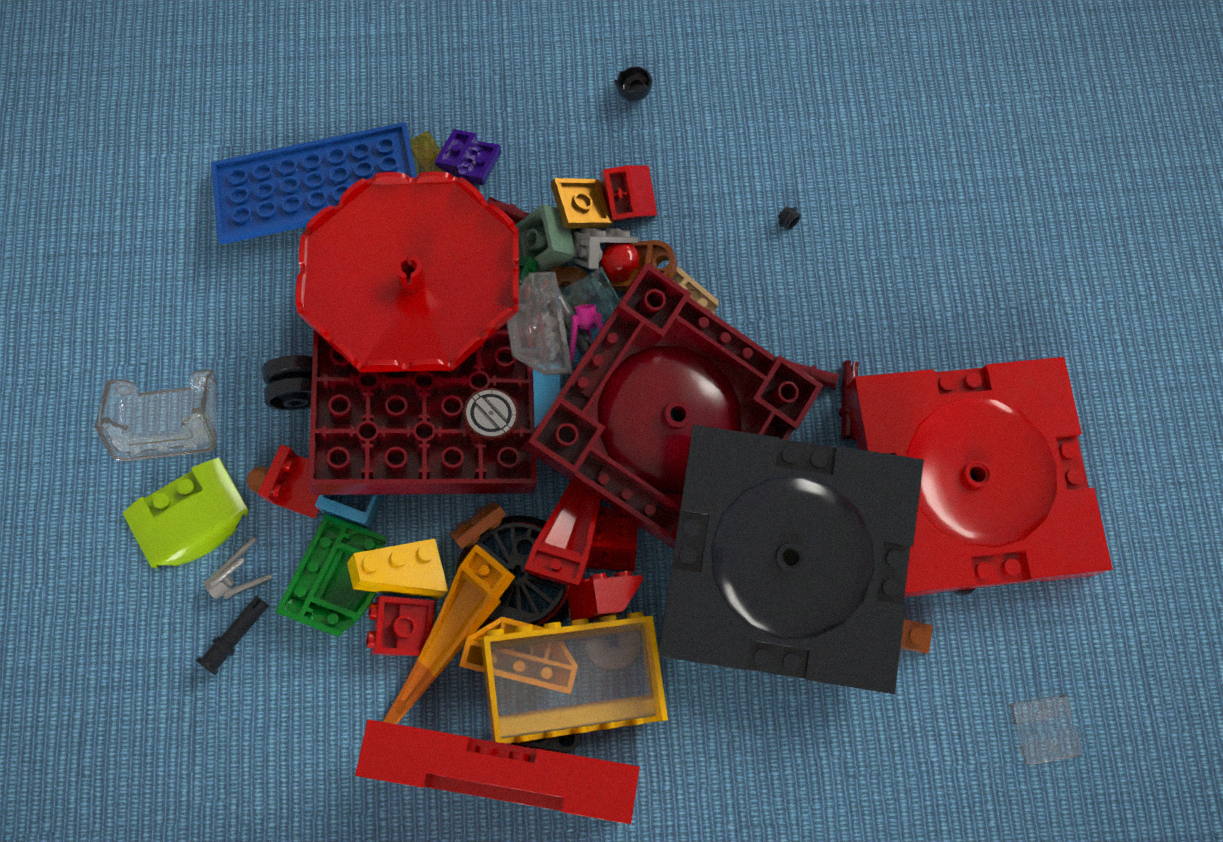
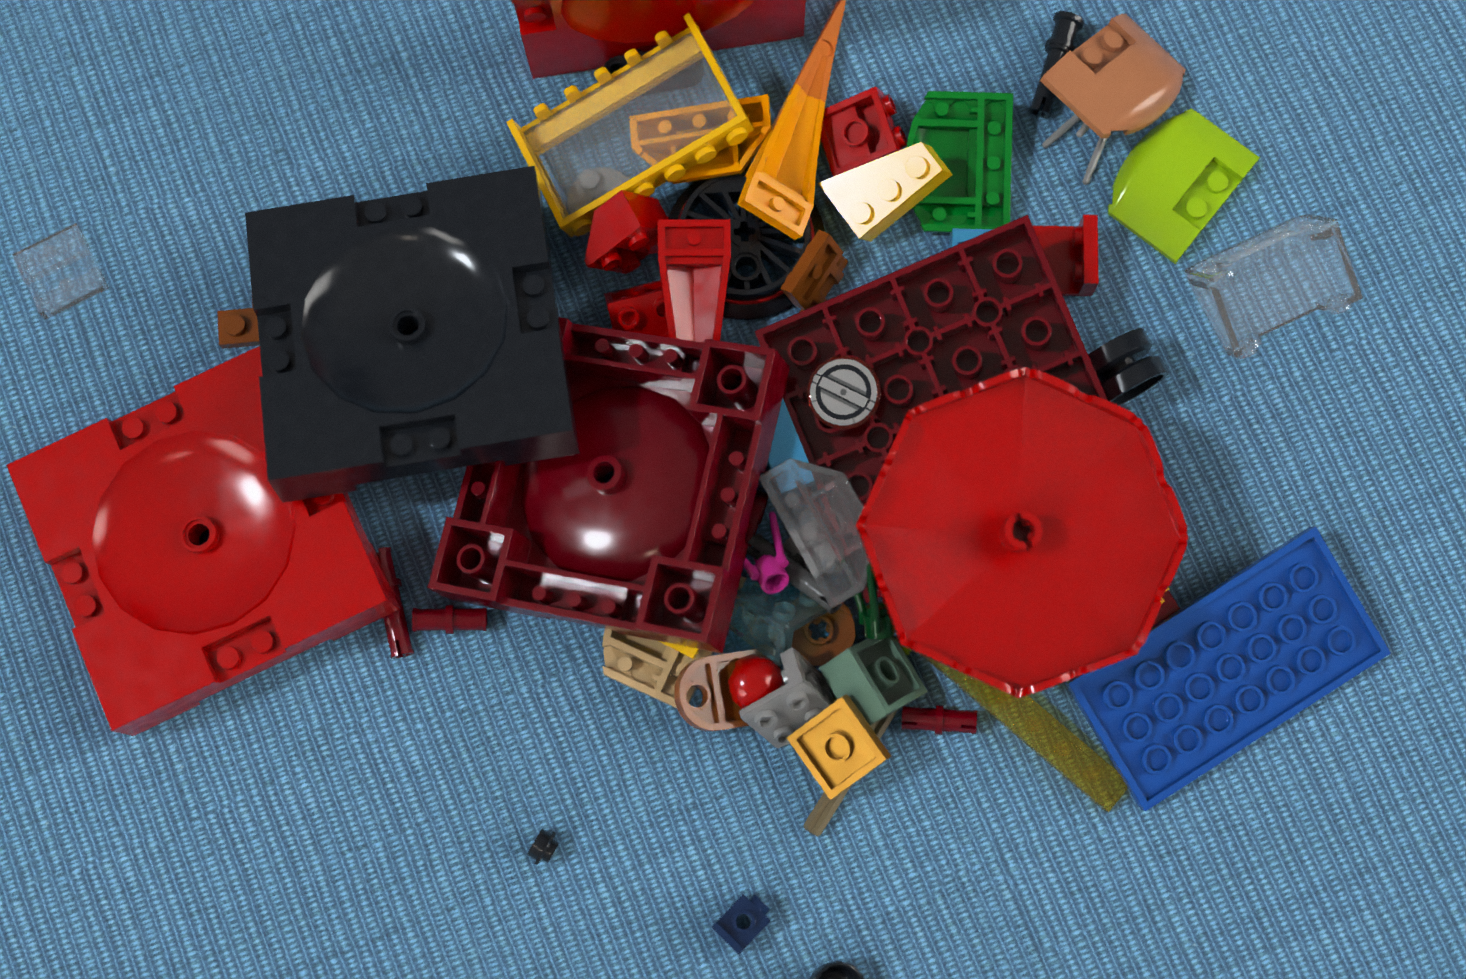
camera: 165 degrees right, 5 degrees up
(193, 600) = (1117, 79): none -> nougat slope
(256, 478) = (1111, 249): dark orange plate -> none
(468, 157) = (1031, 784): dark purple slope -> none
(628, 192) = (780, 797): red slope -> none
(678, 137) = (731, 933): none -> dark blue brick

